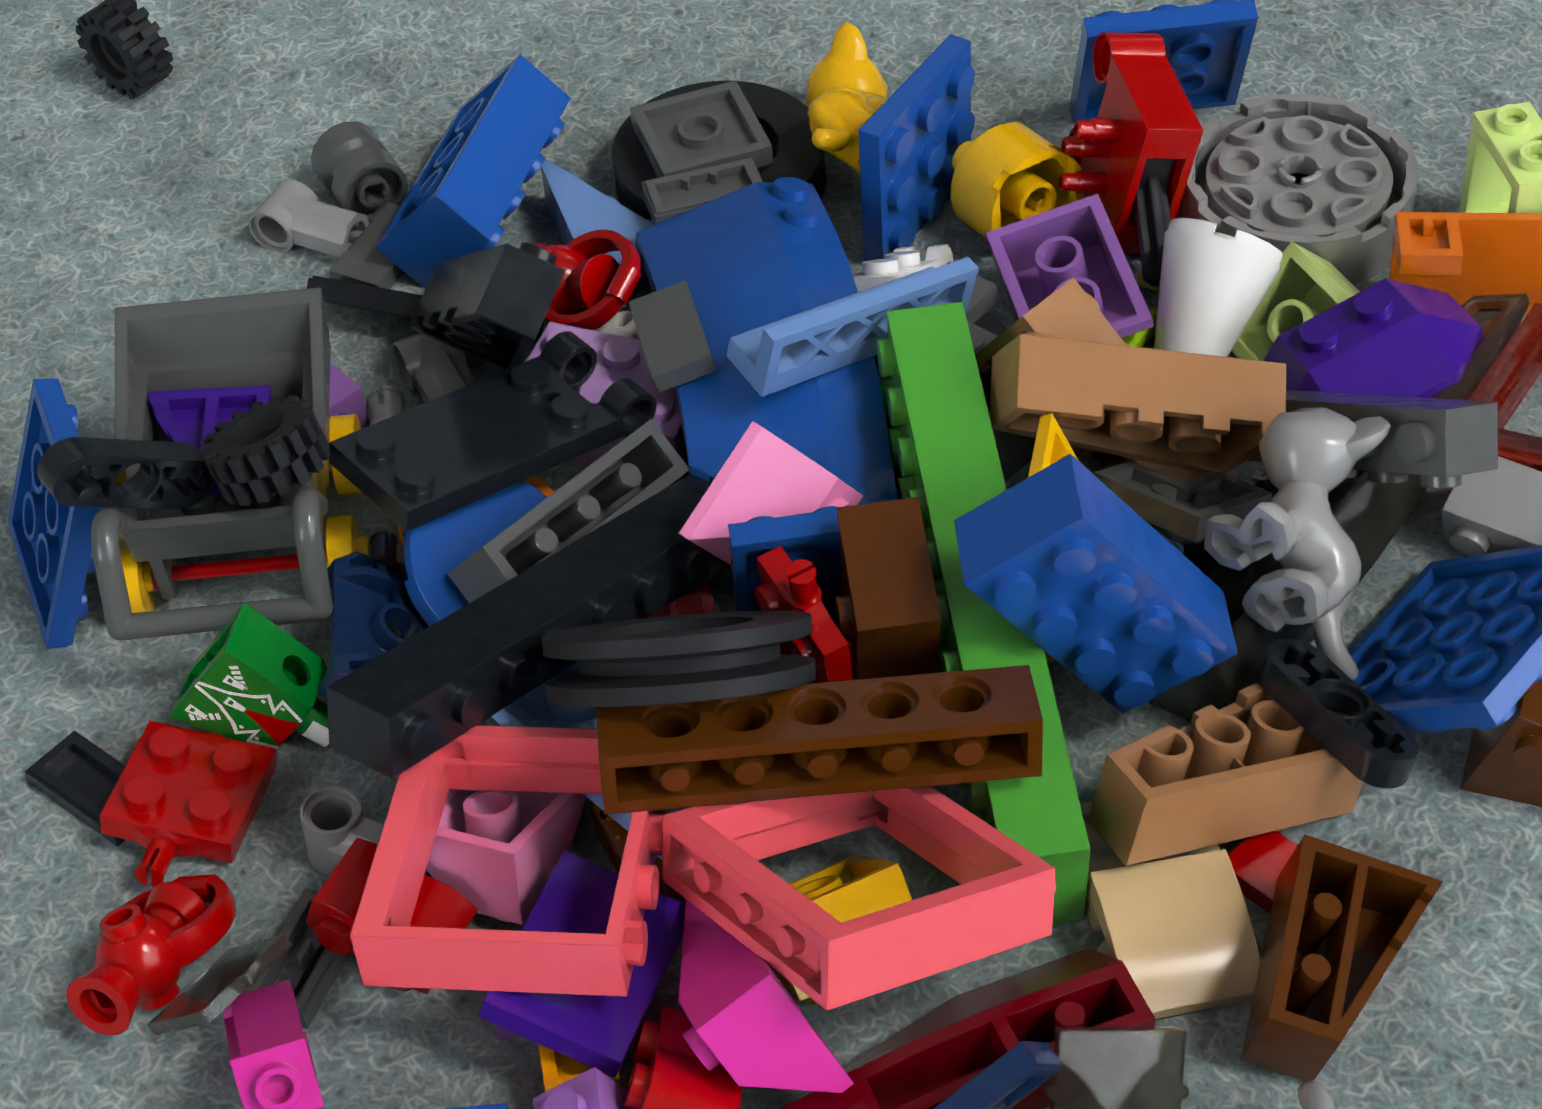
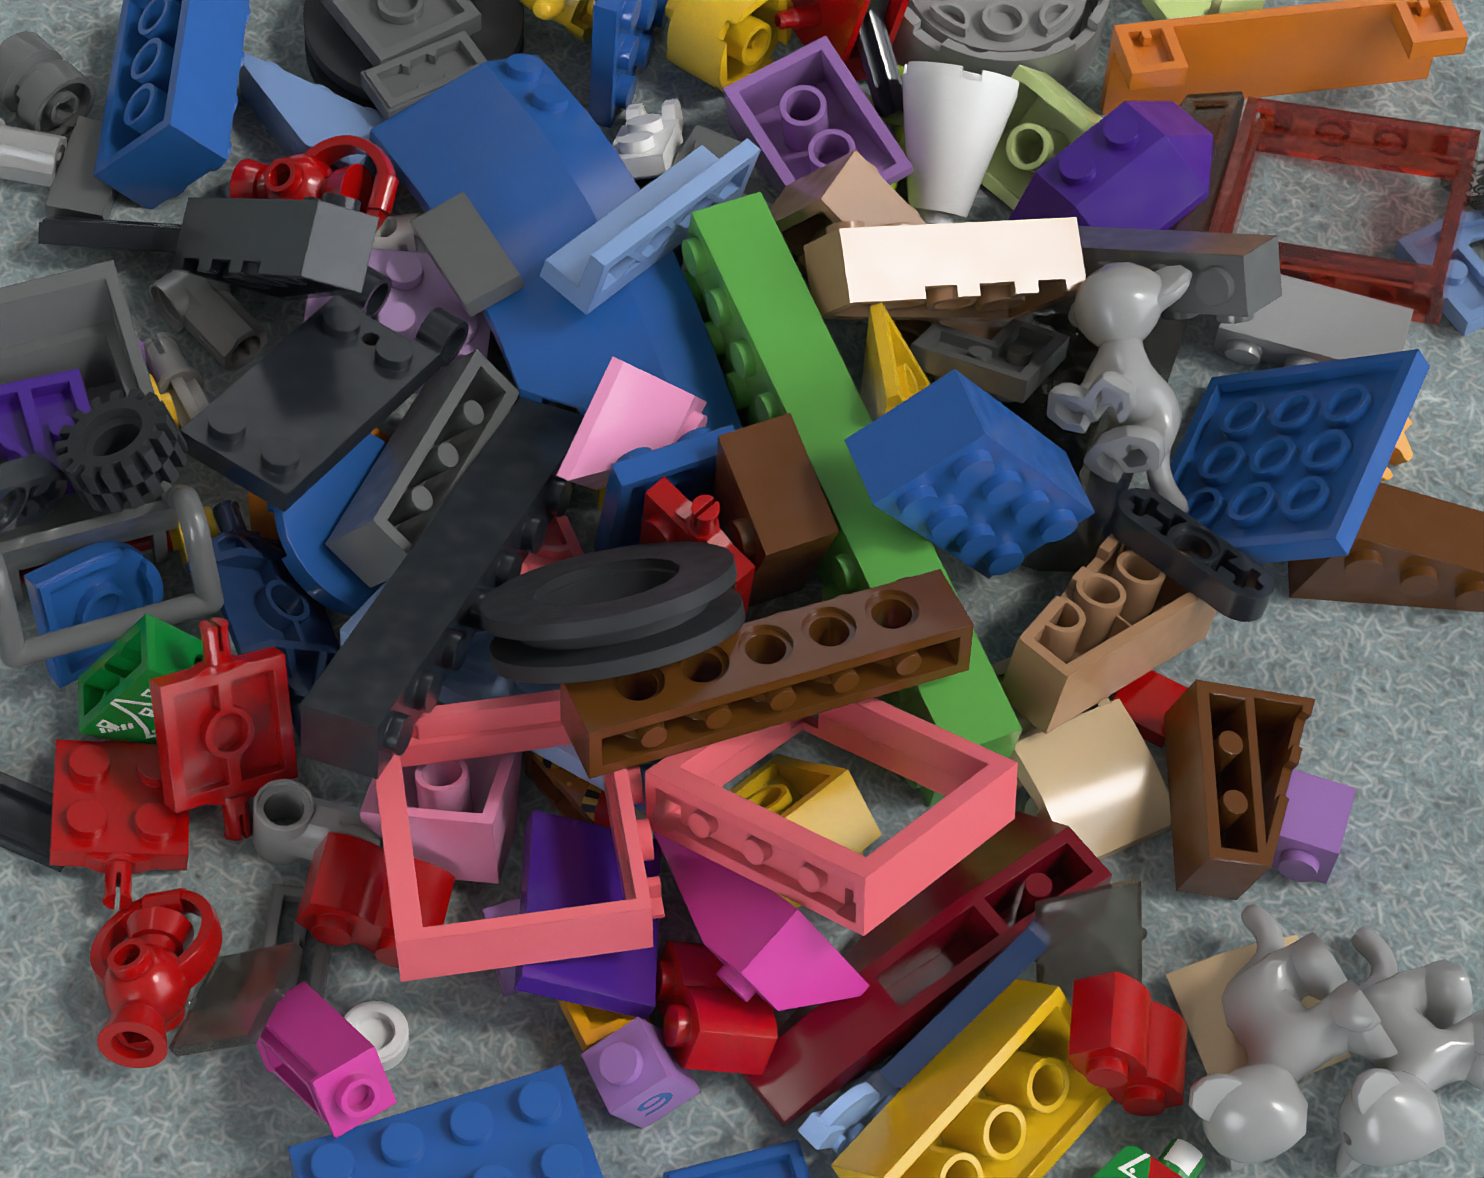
camera: 25 degrees left, 10 degrees up
(219, 576) = (87, 587): none -> blue tile
(279, 725) = (224, 728): none -> red plate
(351, 1052) = (384, 1028): none -> white tile
(1409, 1018) = (1312, 827): none -> medium lavender brick

